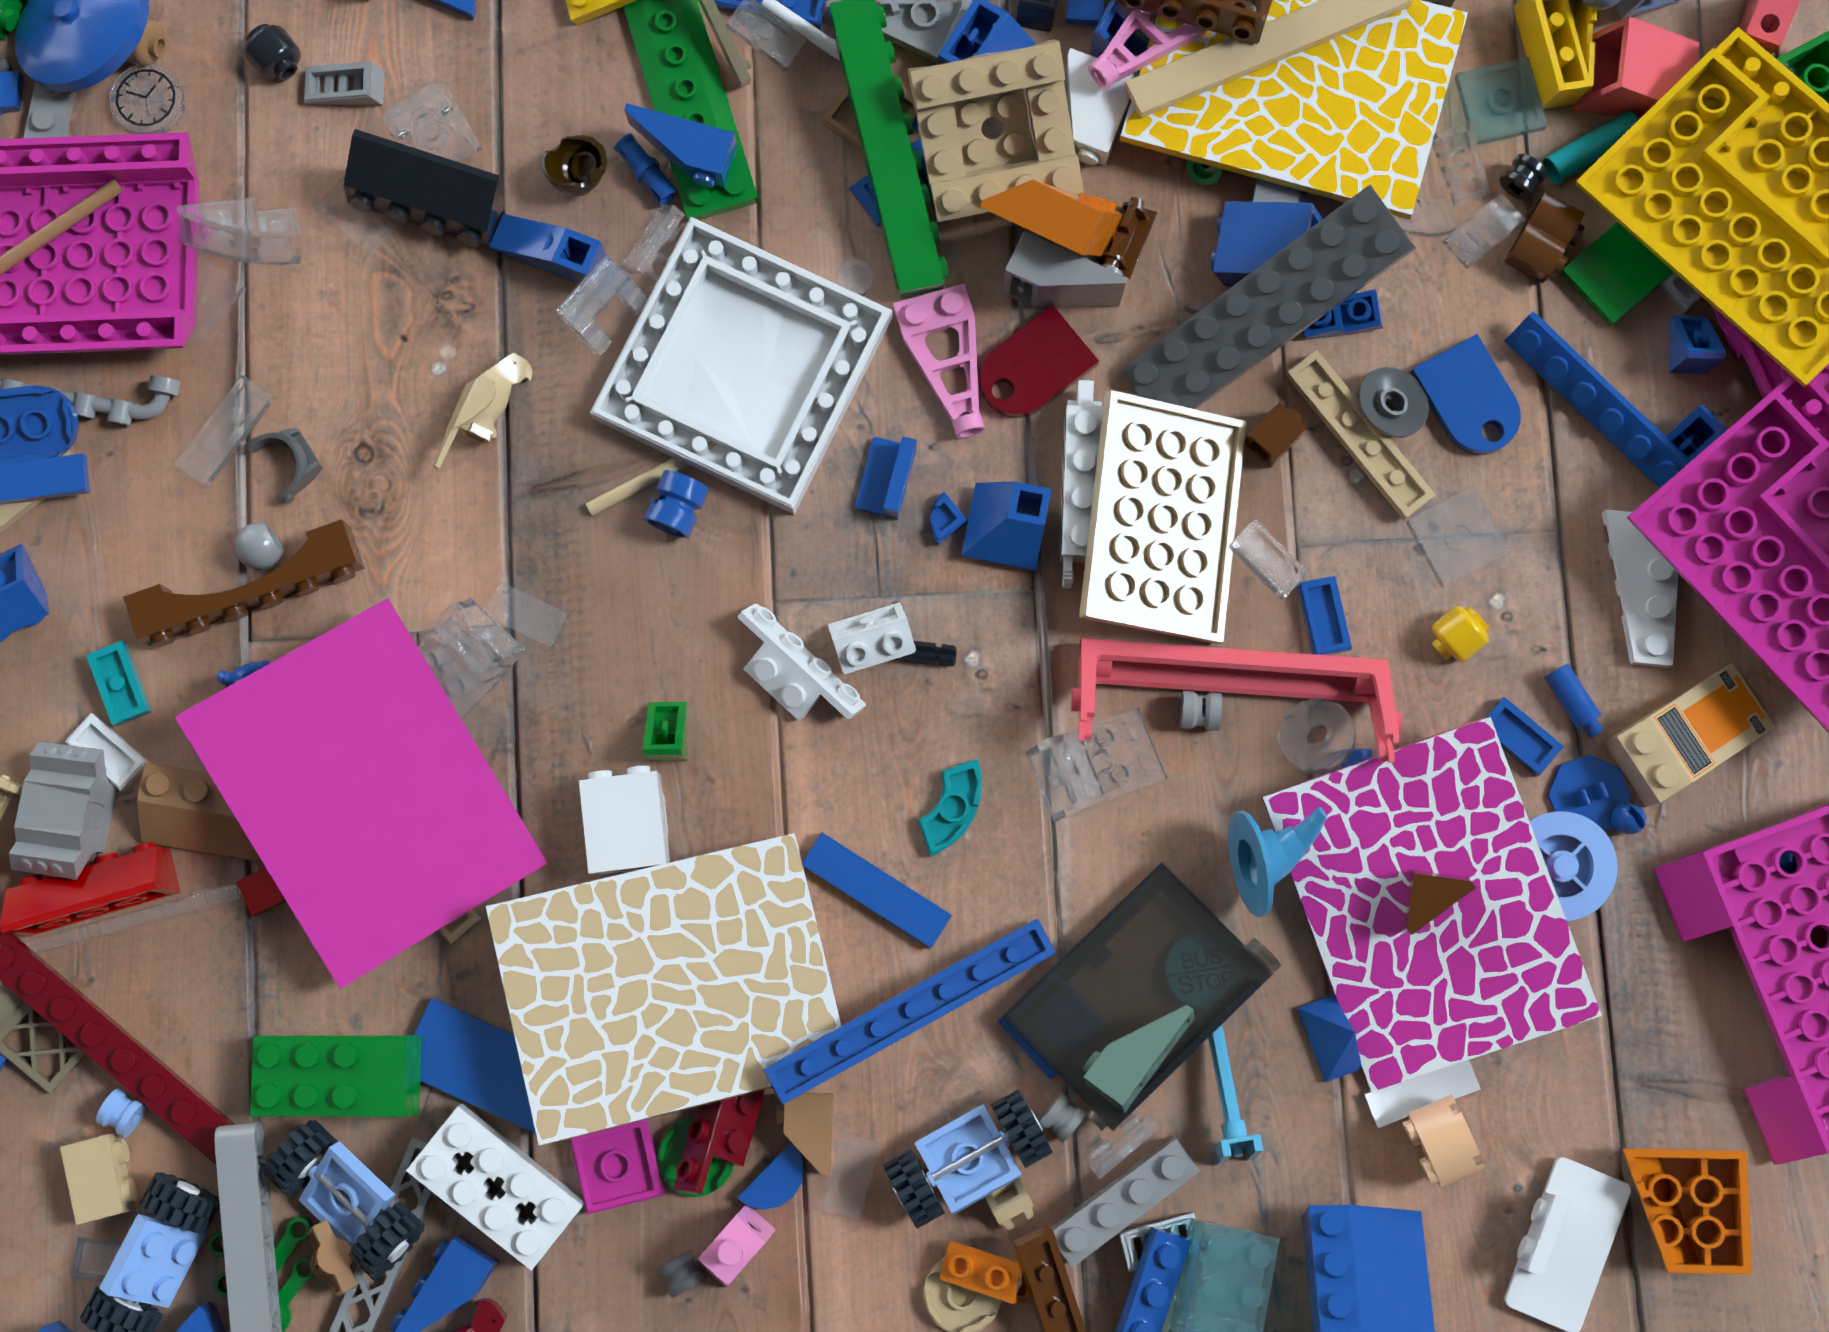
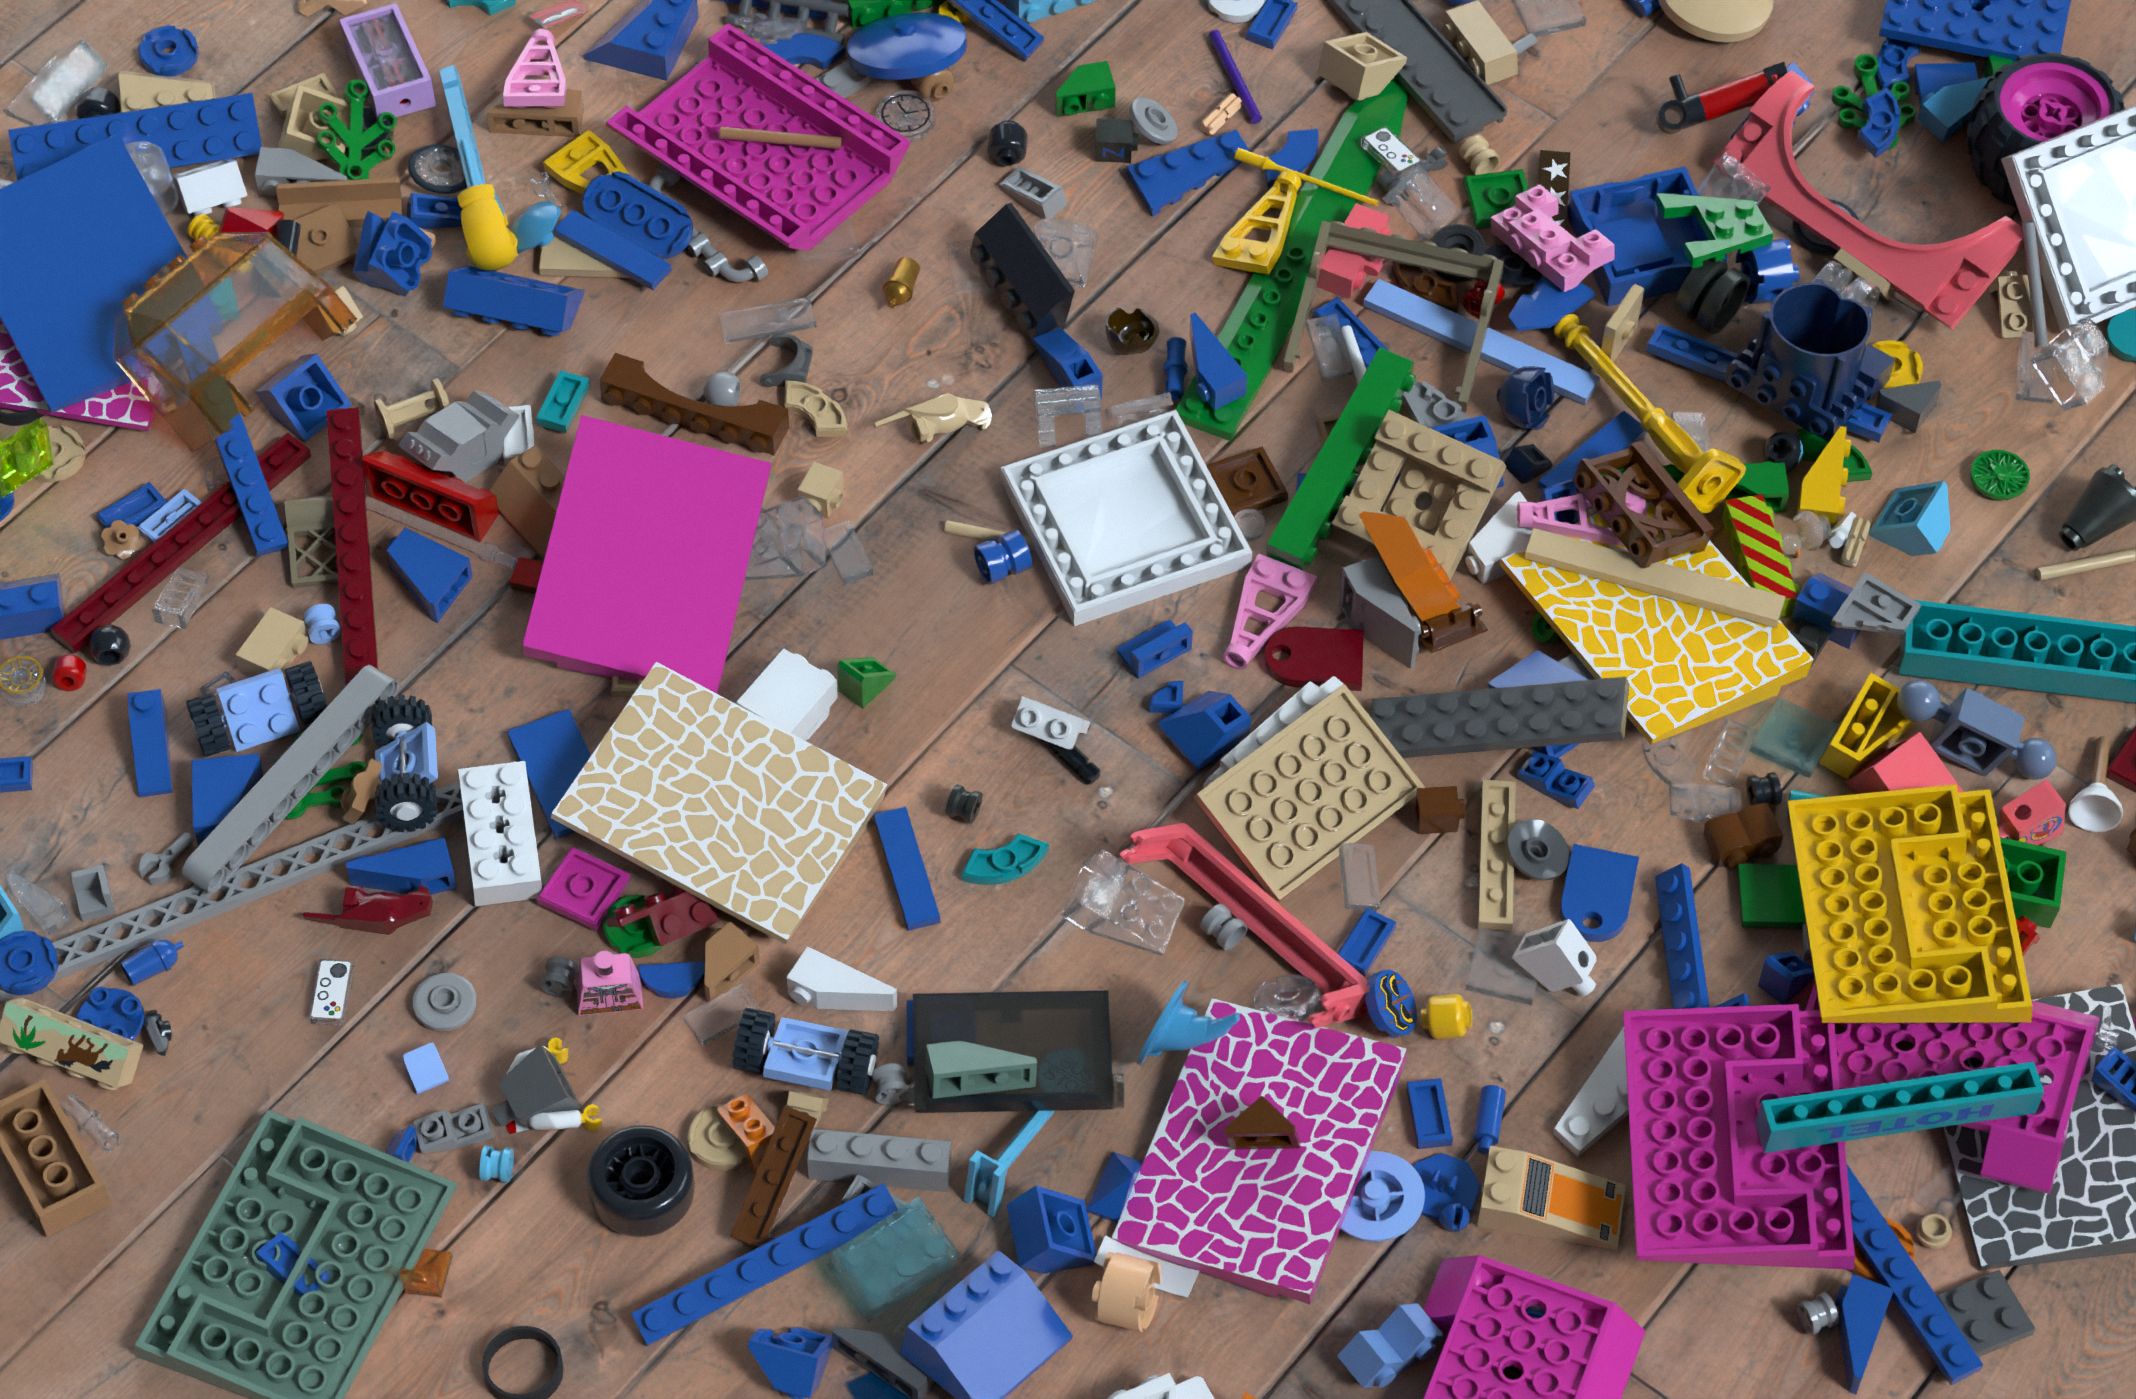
camera: 40 degrees right, 25 degrees down
(166, 972) = (428, 571): none -> blue slope
(241, 233) = (886, 213): clear slope -> none
(313, 287) = (900, 284): none -> pearl gold piece
(336, 1075) = (471, 699): green brick -> none
(358, 485) = (817, 408): none -> tan tile
(448, 574) = (823, 488): none -> tan brick
(791, 671) = (980, 705): white bracket -> none
(814, 234) = (1248, 481): none -> reddish brown tile
(870, 785) = (963, 803): none -> pearl dark grey wheel
(908, 1011) = (857, 937): blue plate -> none
(920, 1068) = (833, 985): none -> white slope
(1108, 1155) = (902, 1117): clear plate -> none
(1323, 1136) = (1051, 1231): none -> blue slope
(1411, 666) = (1391, 1003): none -> blue tile
(1518, 492) = (1558, 958): none -> white torso
(1694, 976) = (1398, 1344): none -> medium blue brick

